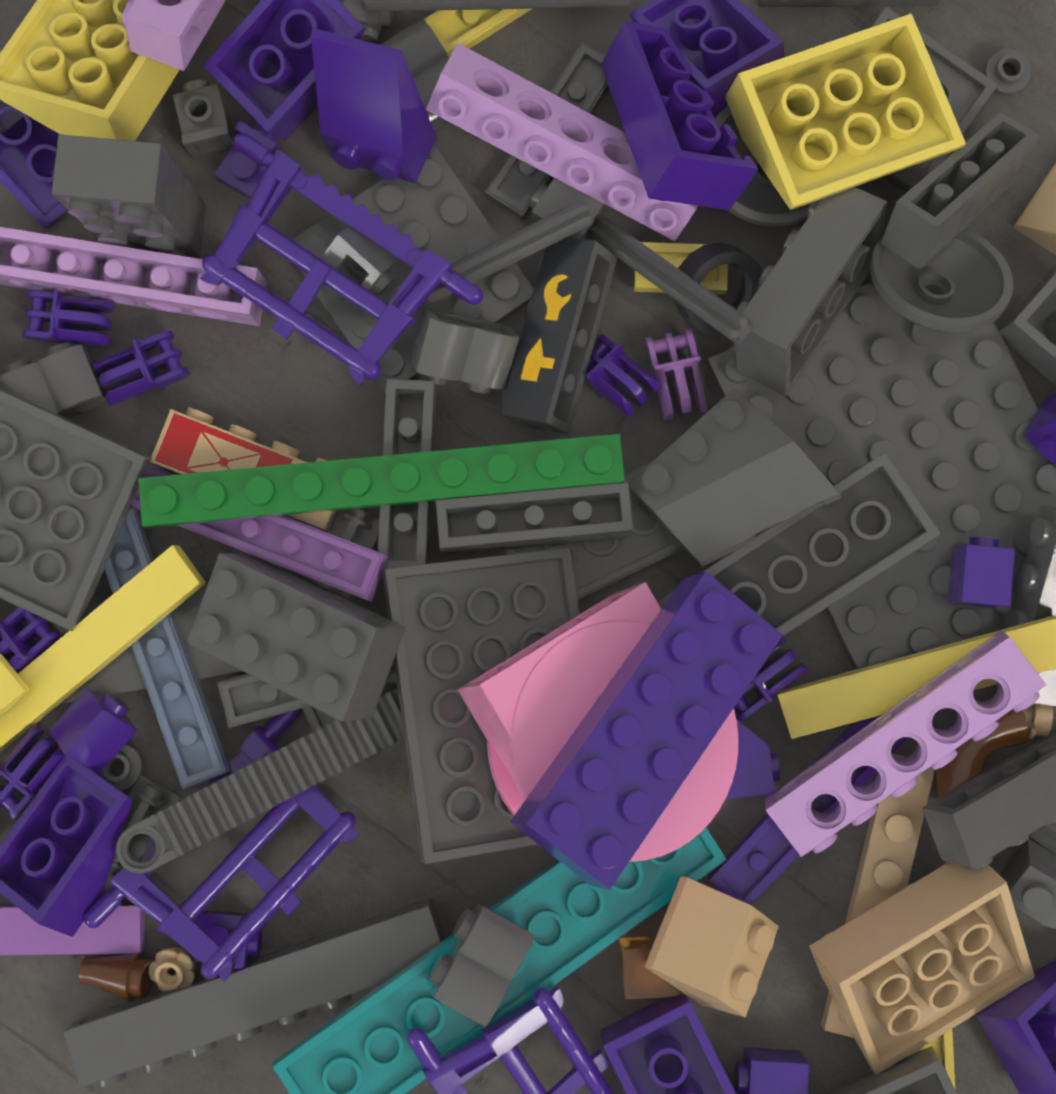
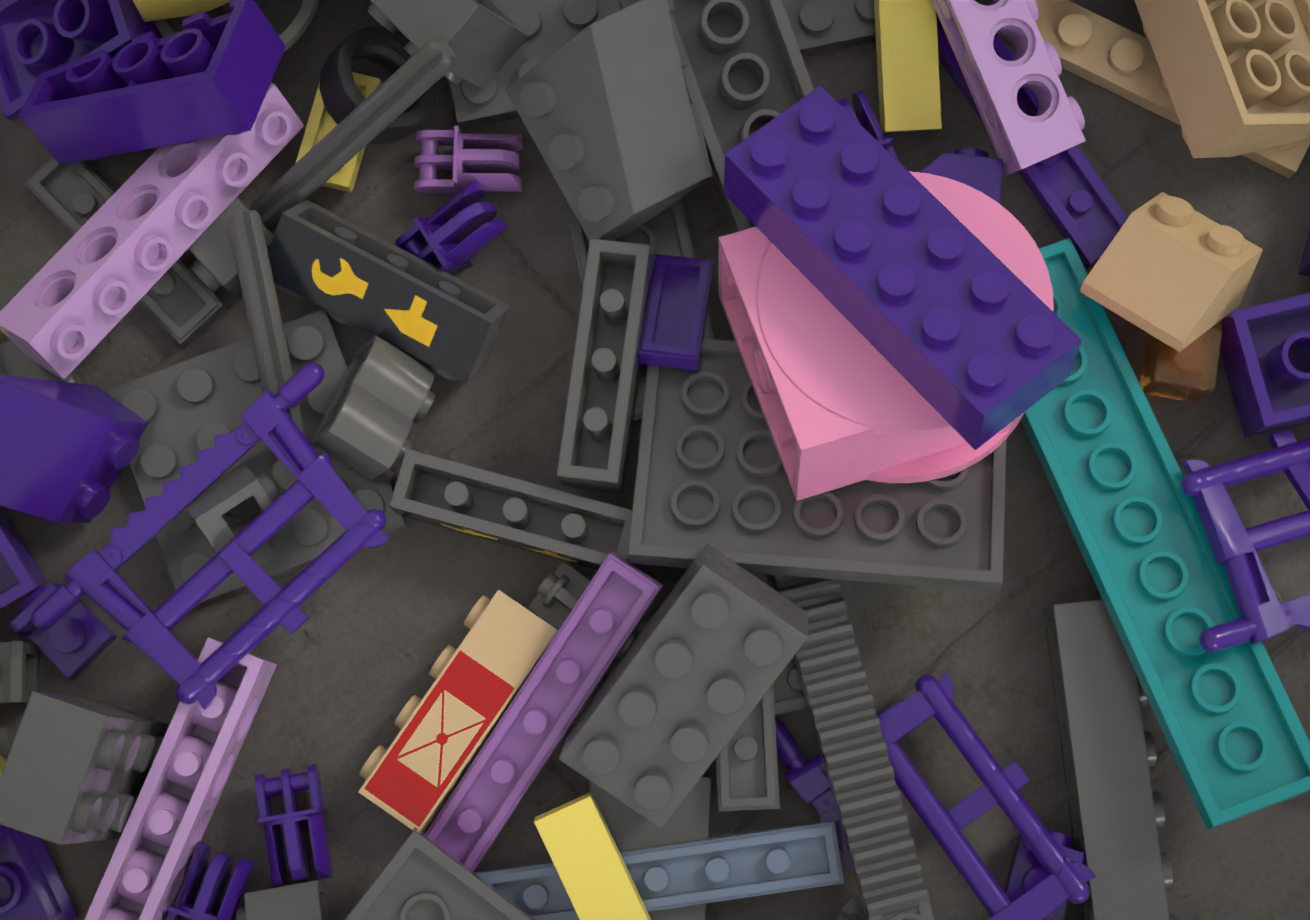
camera: 75 degrees left, 5 degrees down
(380, 480) = (515, 545): green plate -> none
(480, 964) = (1136, 544): dark grey brick -> none
(591, 563) = (676, 312): none -> dark purple tile

